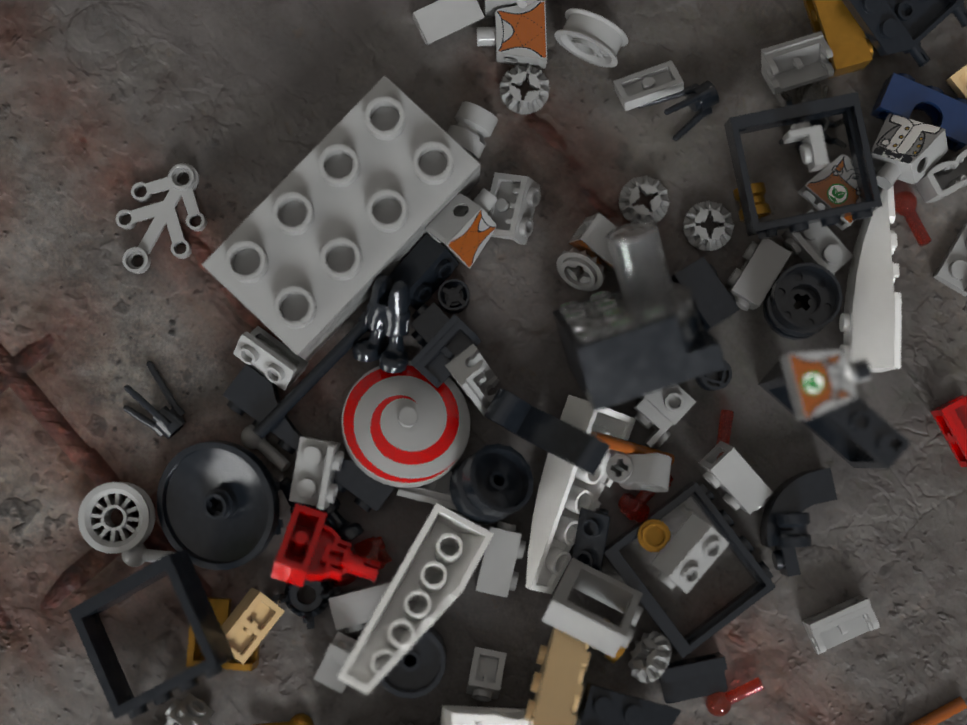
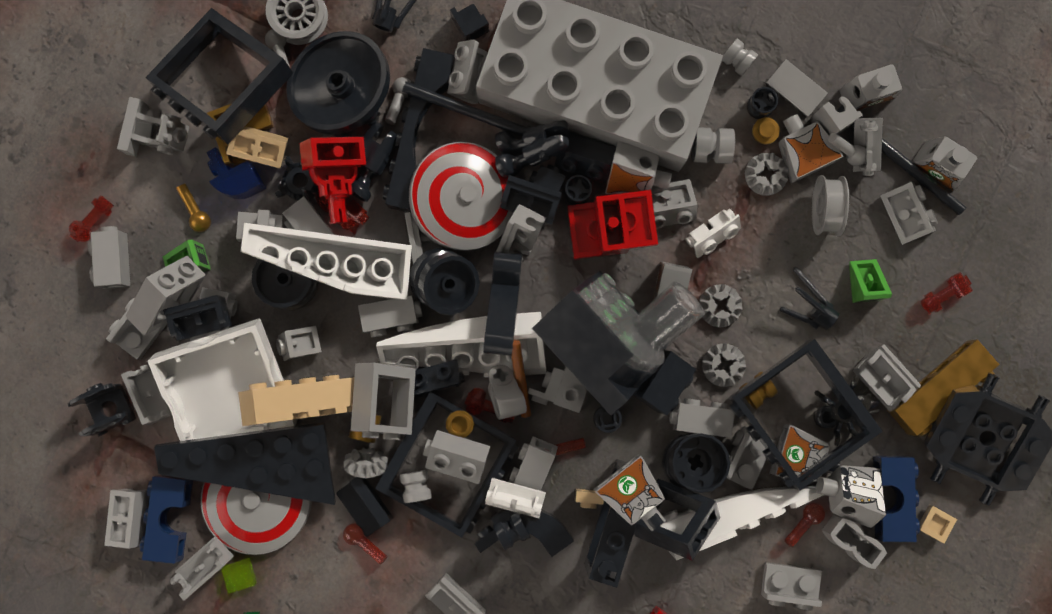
camera: 70 degrees right, 0 degrees up
(215, 331) = (470, 22): none -> black panel
(277, 667) = (237, 182): none -> clear blue brick
(315, 472) = (394, 143): light grey bracket -> none
(388, 59) = (739, 57): none -> light grey wheel
(447, 52) = (764, 97): none -> black wheel
(478, 69) = (765, 131): none -> pearl gold plate
(510, 275) = (612, 225): none -> red bracket
(562, 160) = (724, 226): none -> white hinge
(569, 269) = (642, 269): light grey gear -> none
(648, 85) = (814, 268): light grey plate -> none
(687, 36) = (868, 281): none -> bright green slope
(700, 612) = (415, 485): none -> light grey wheel
(759, 510) = (515, 498): none -> white hinge
(788, 432) = (588, 498): none -> tan plate
(813, 149) = (819, 414): light grey bracket -> none
(878, 329) = (697, 530): none -> black window

